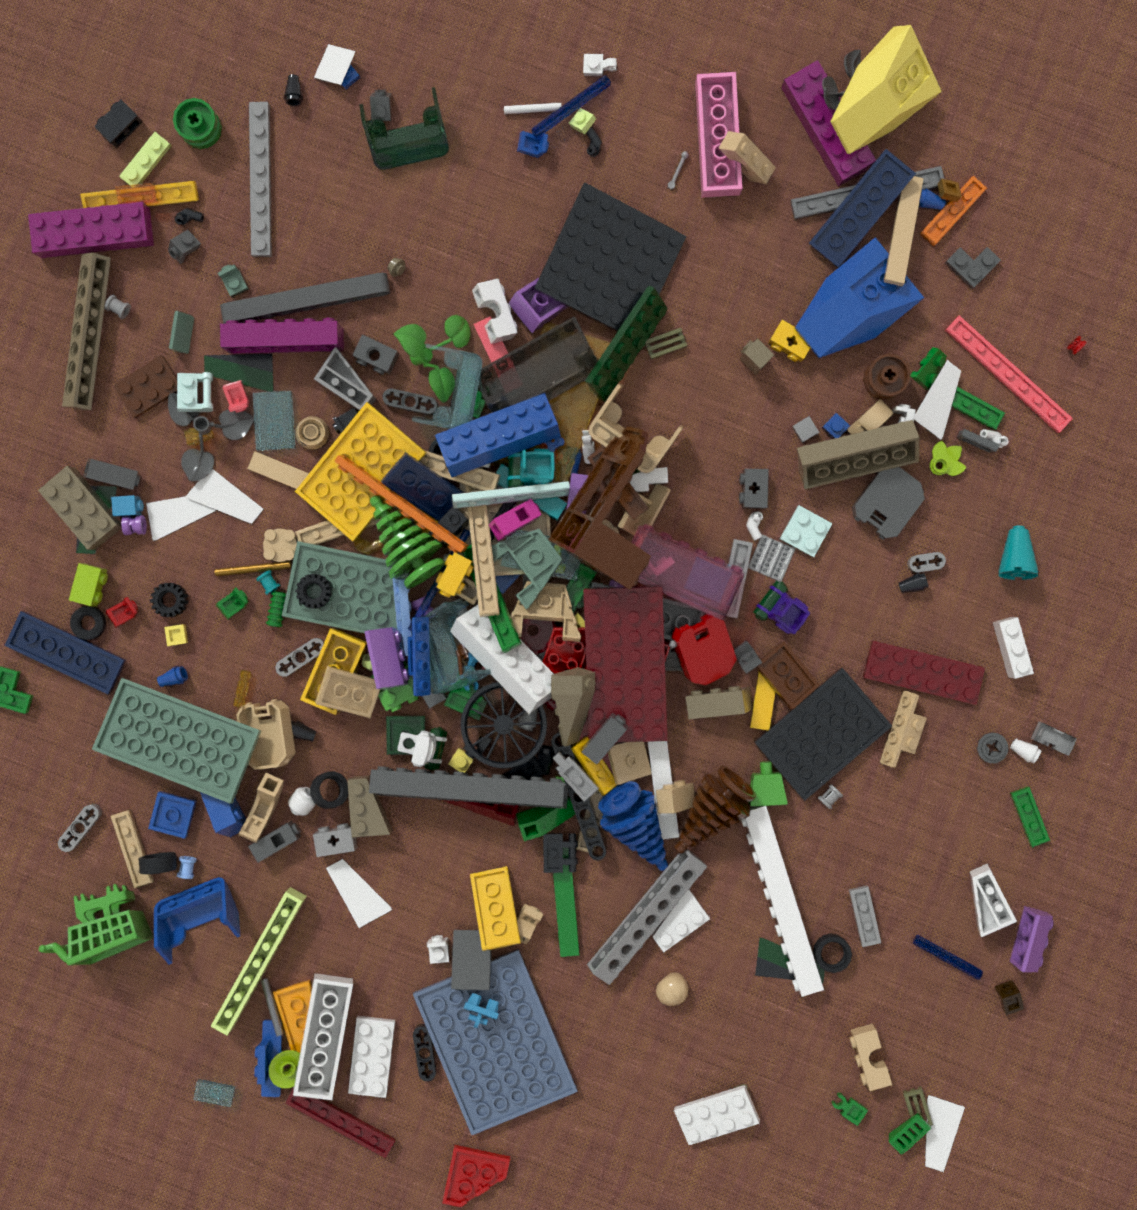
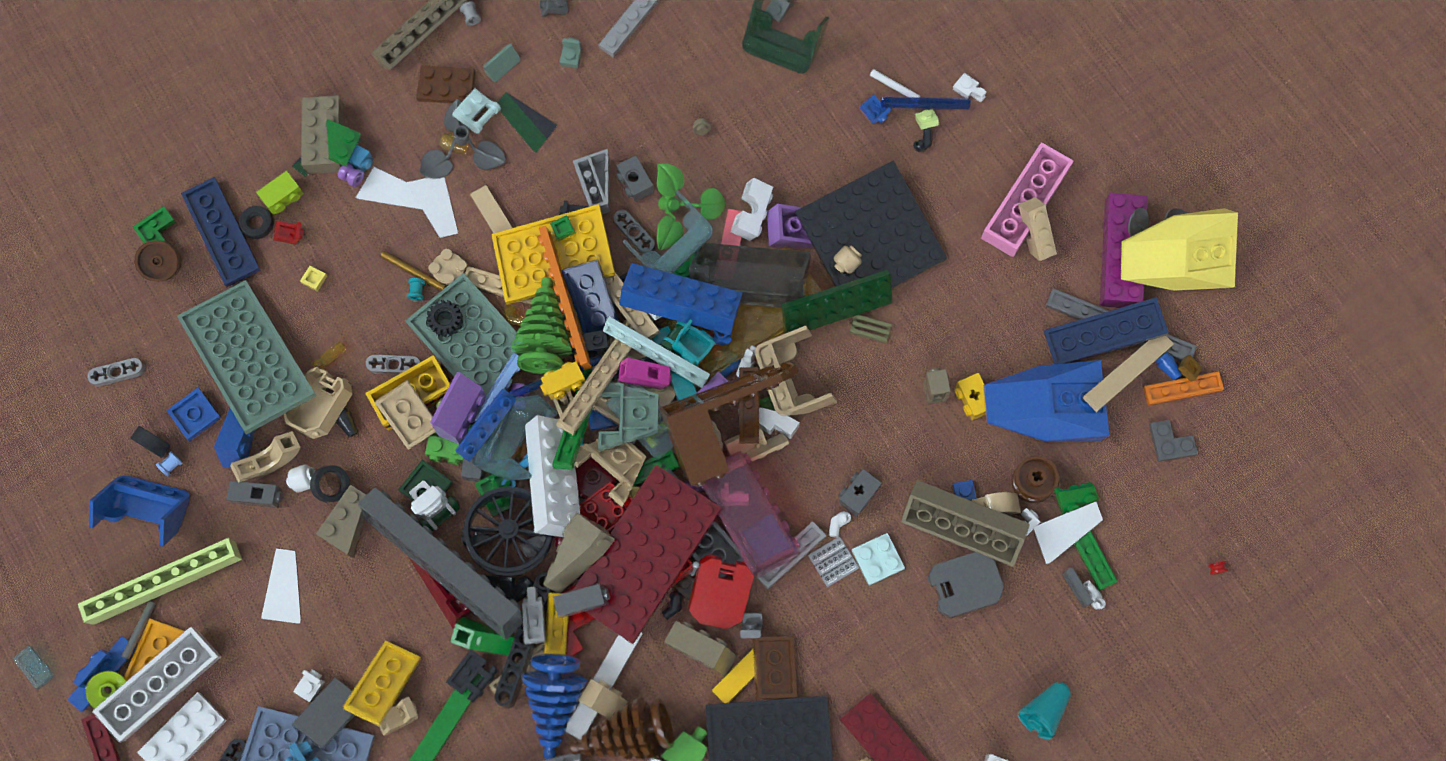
camera: 40 degrees right, 15 degrees down
(33, 727) = (148, 267): none -> reddish brown wheel
(81, 937) = (75, 450): bright green piece -> none
(104, 505) = (340, 142): none -> green wing
(111, 474) = (366, 125): dark grey slope -> none
(131, 846) = (141, 416): tan tile -> none
(157, 600) = (333, 237): black tyre -> none
(174, 676) = (287, 309): blue cone -> none
(232, 603) = (376, 285): green bracket -> none
(236, 396) = (505, 135): coral bracket -> none
(273, 420) = (519, 173): clear light blue tile -> none
(276, 609) = (398, 319): green piece -> none
(281, 336) = (573, 115): magenta brick -> none
(306, 298) = (614, 102): dark grey beam -> none
(308, 428) = (540, 202): tan hat -> none
(325, 846) = (290, 527): light grey brick -> none
(352, 444) = (562, 228): none -> green tile
(460, 761) = (453, 540): light yellow plate -> none
(609, 300) = (847, 259): none -> tan head
(629, 761) = (588, 641): tan plate -> none
(671, 185) = (963, 213): light grey hinge -> none
(674, 683) = (675, 605): none -> black arm
(782, 609) = (811, 608): dark purple piece -> none
(805, 429) = (937, 475): light grey tile -> none
(914, 583) = (939, 669): black cone -> none
(925, 557) = (965, 655): light grey beam -> none
(948, 458) = (1042, 585): lime plate -> none
(1008, 374) = (1142, 553): coral tile -> none

